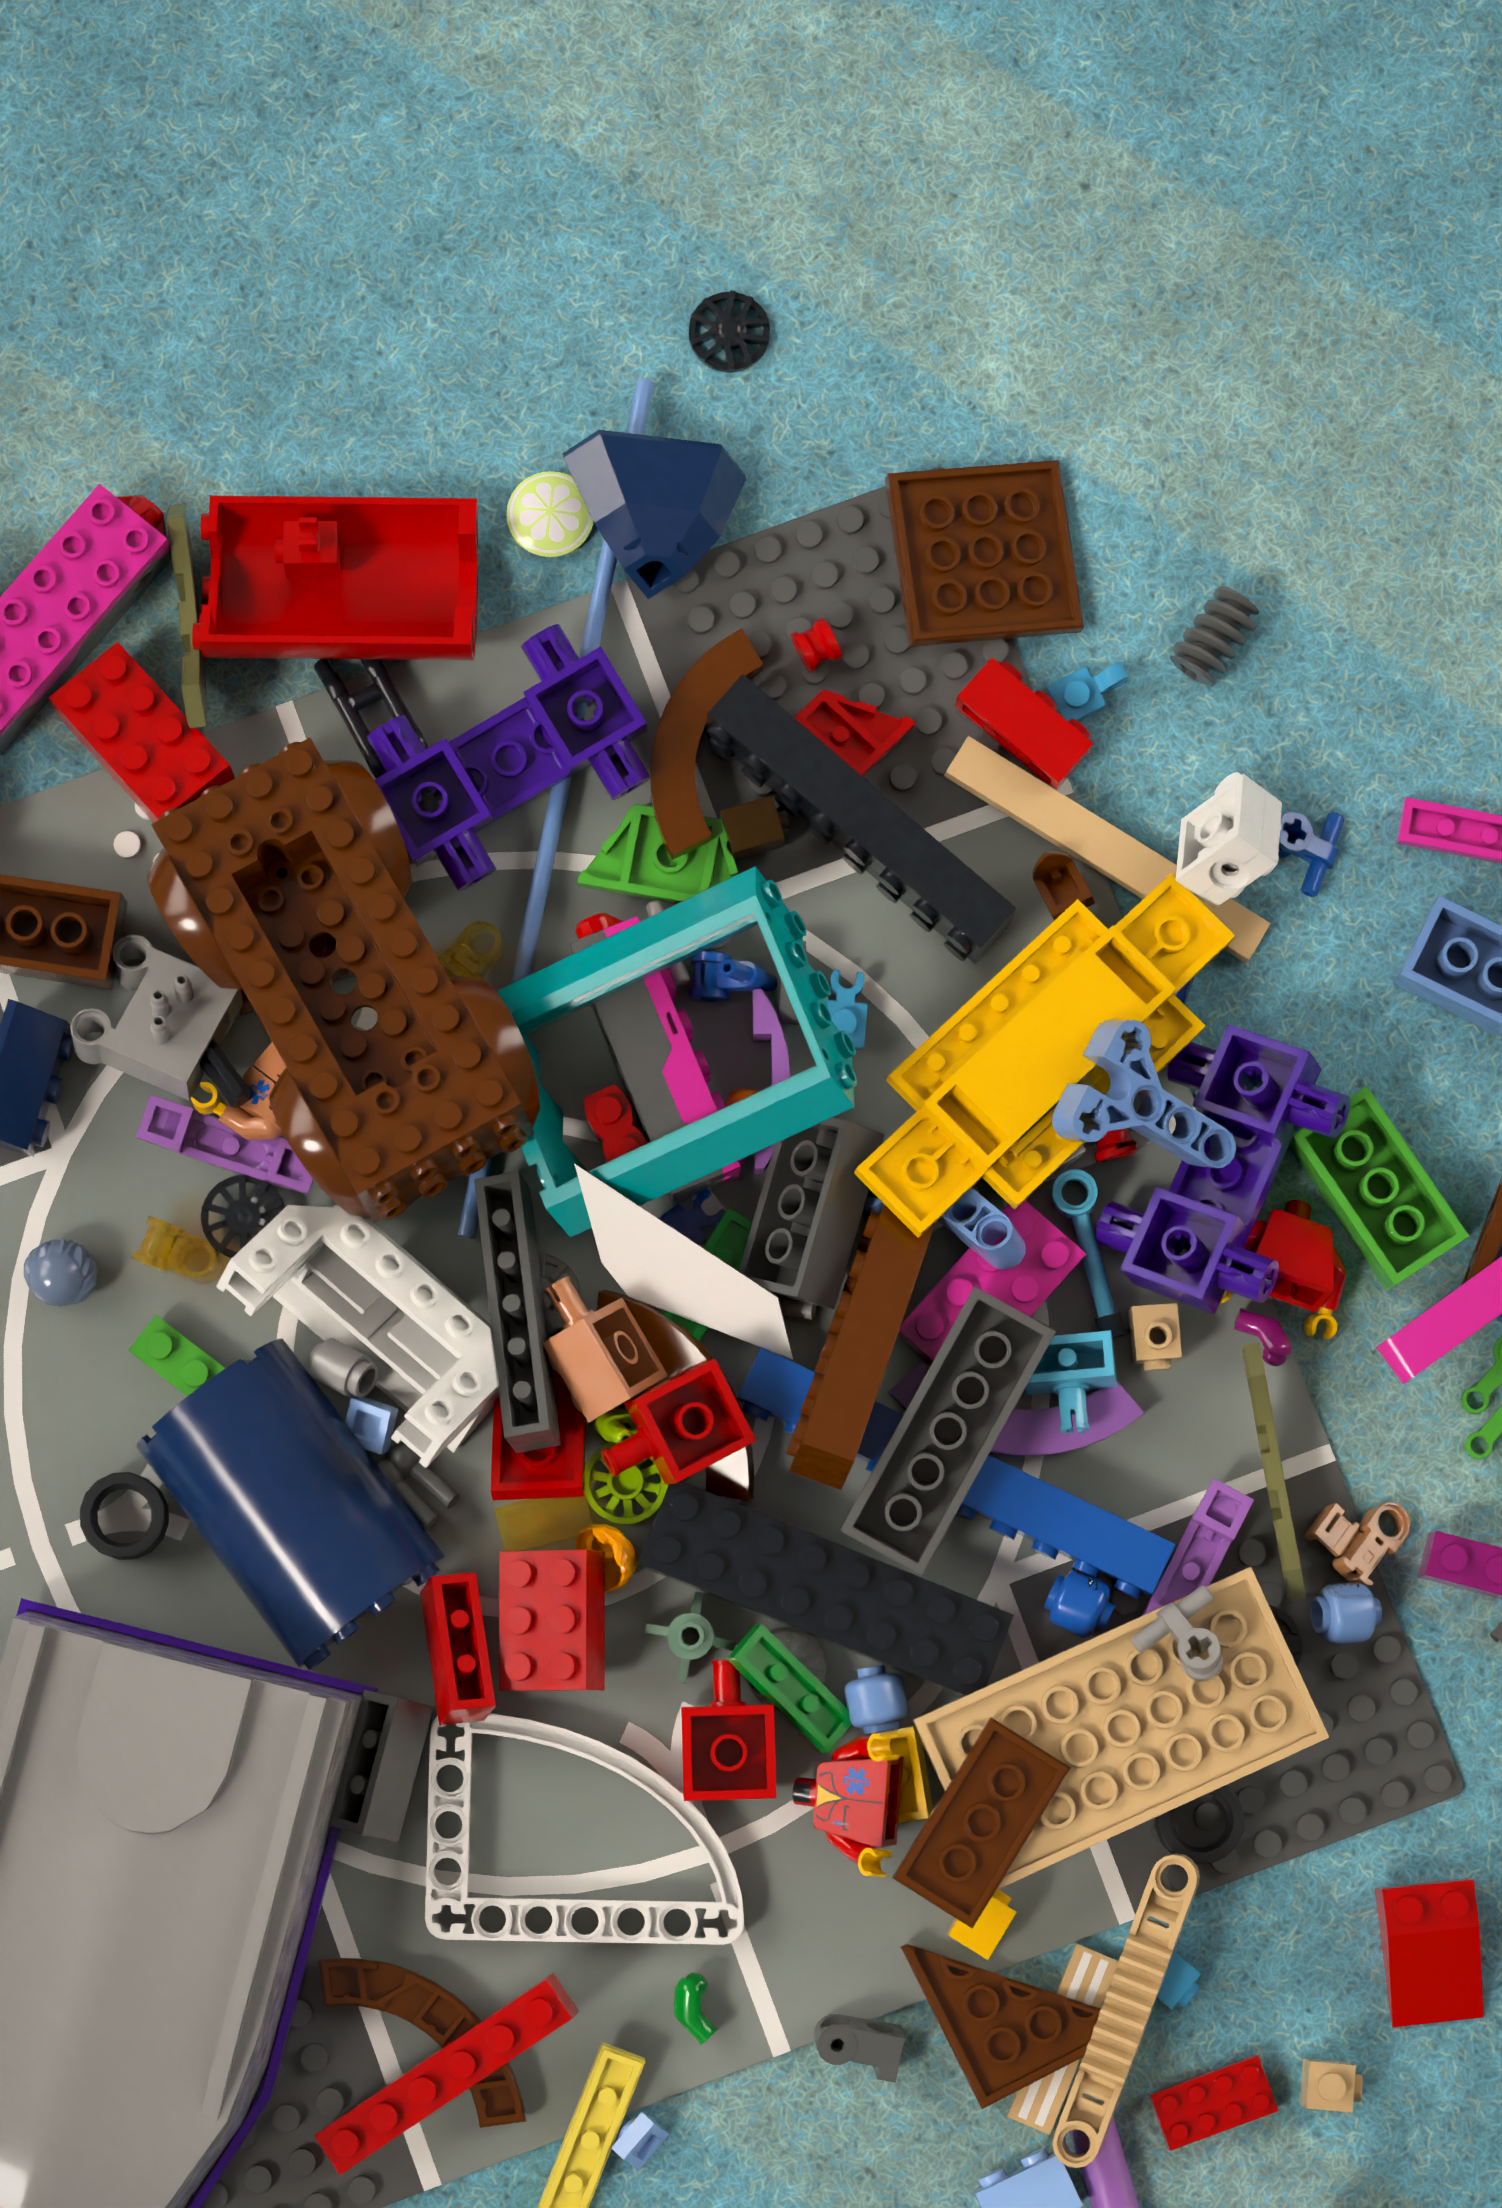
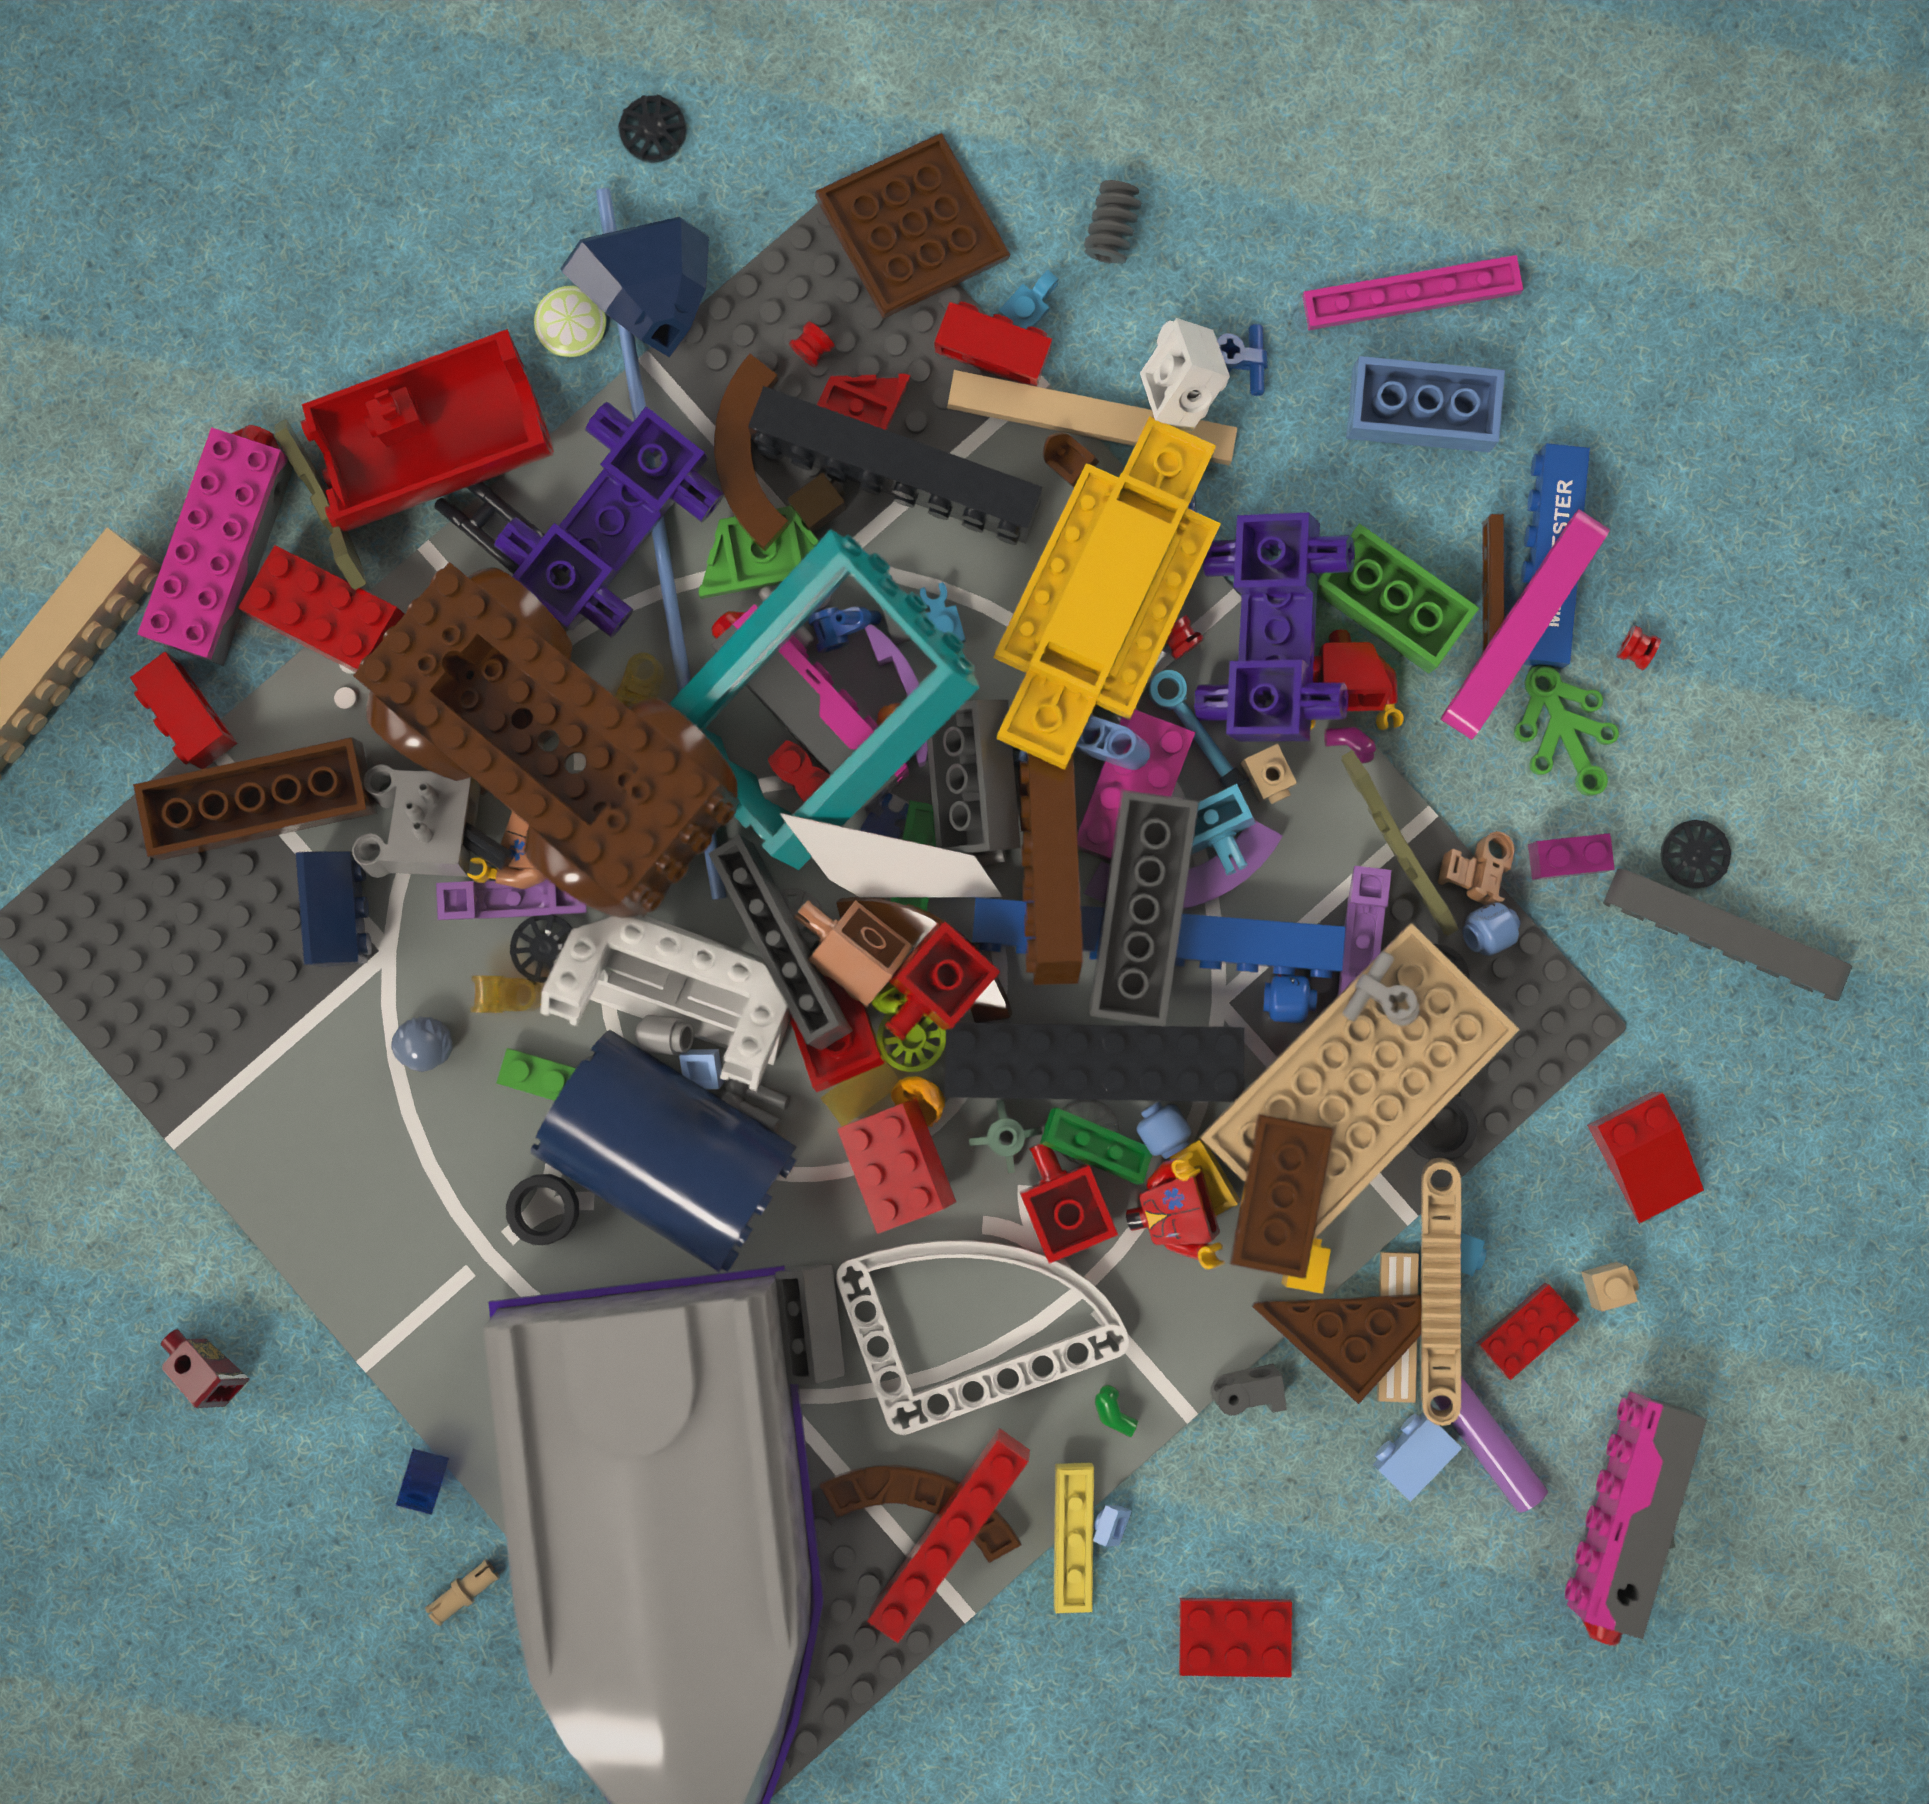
camera: 15 degrees left, 5 degrees up
(457, 1648) = (833, 1213): red brick -> none
(1124, 1054) = (1159, 624): medium blue beam -> none

